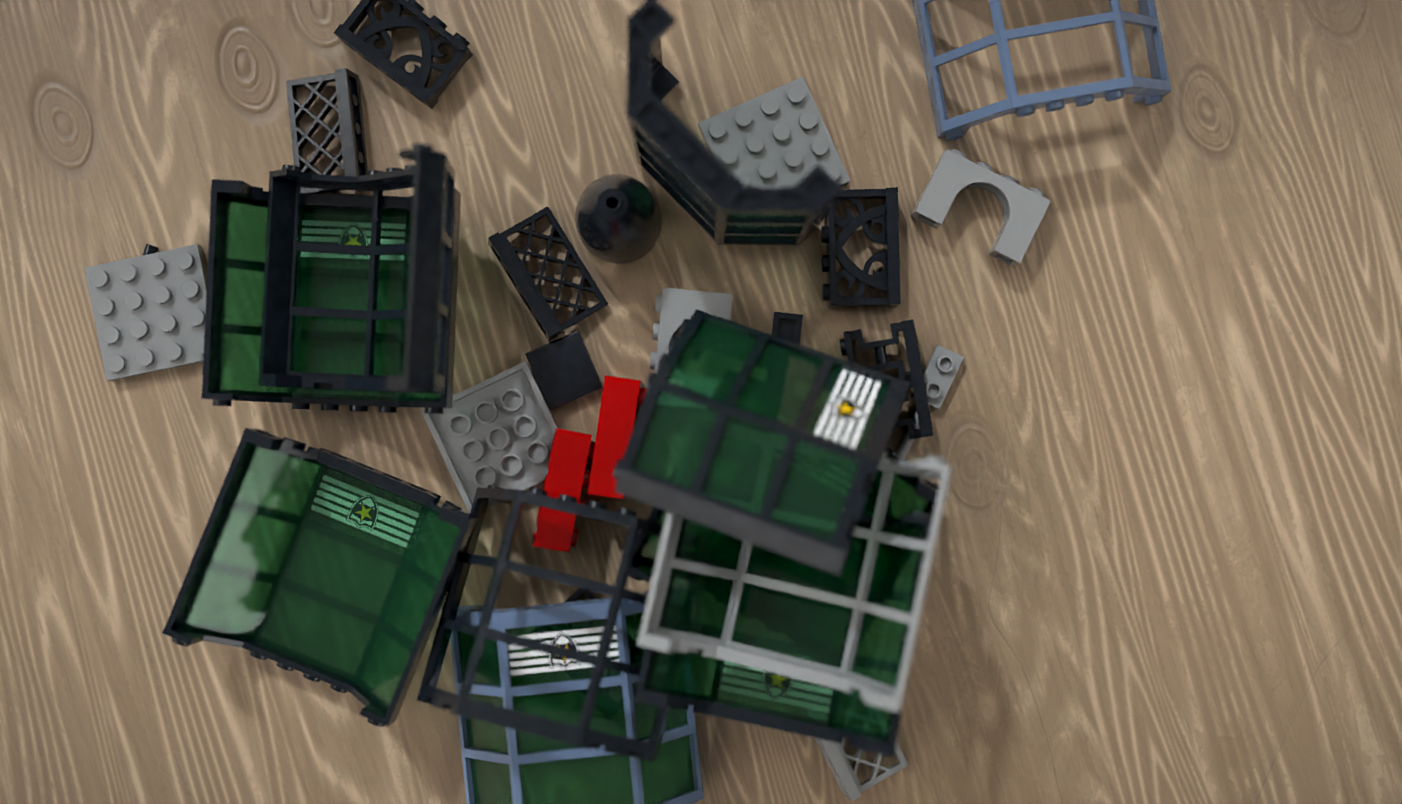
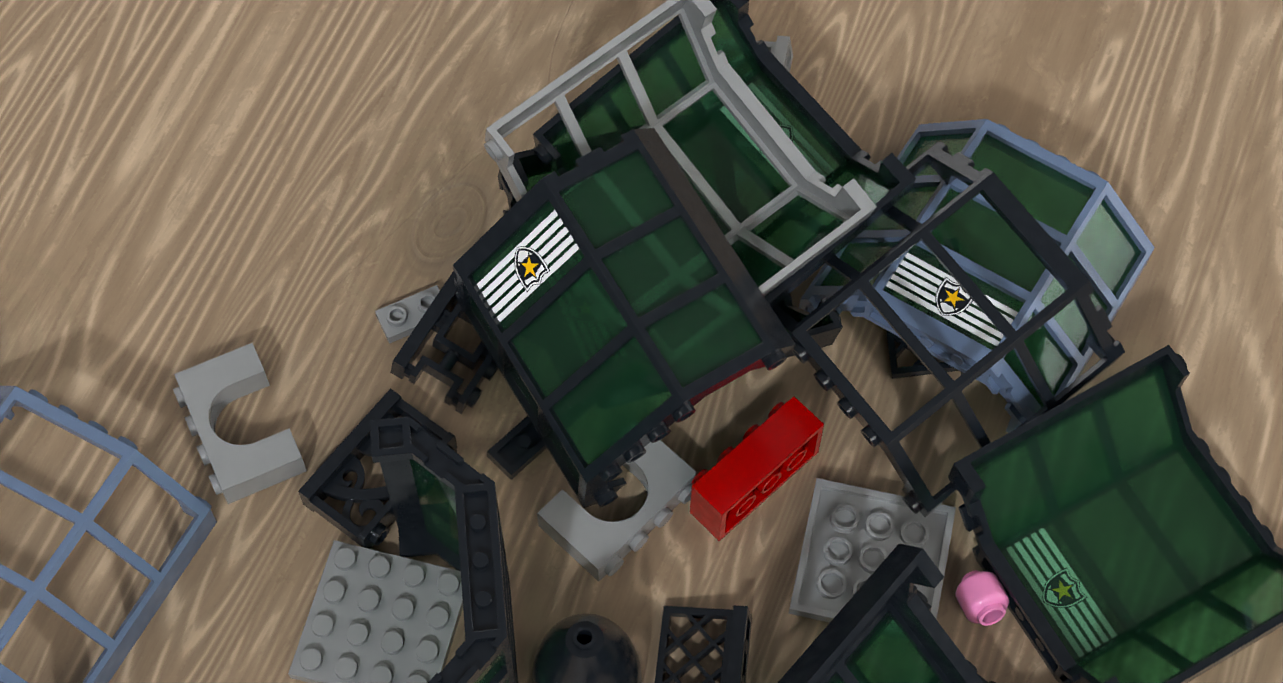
camera: 140 degrees left, 25 degrees down
(410, 465) = (982, 597): none -> bright pink head
(564, 370) = (757, 575): black slope -> none
(566, 477) = (840, 458): red wedge -> none

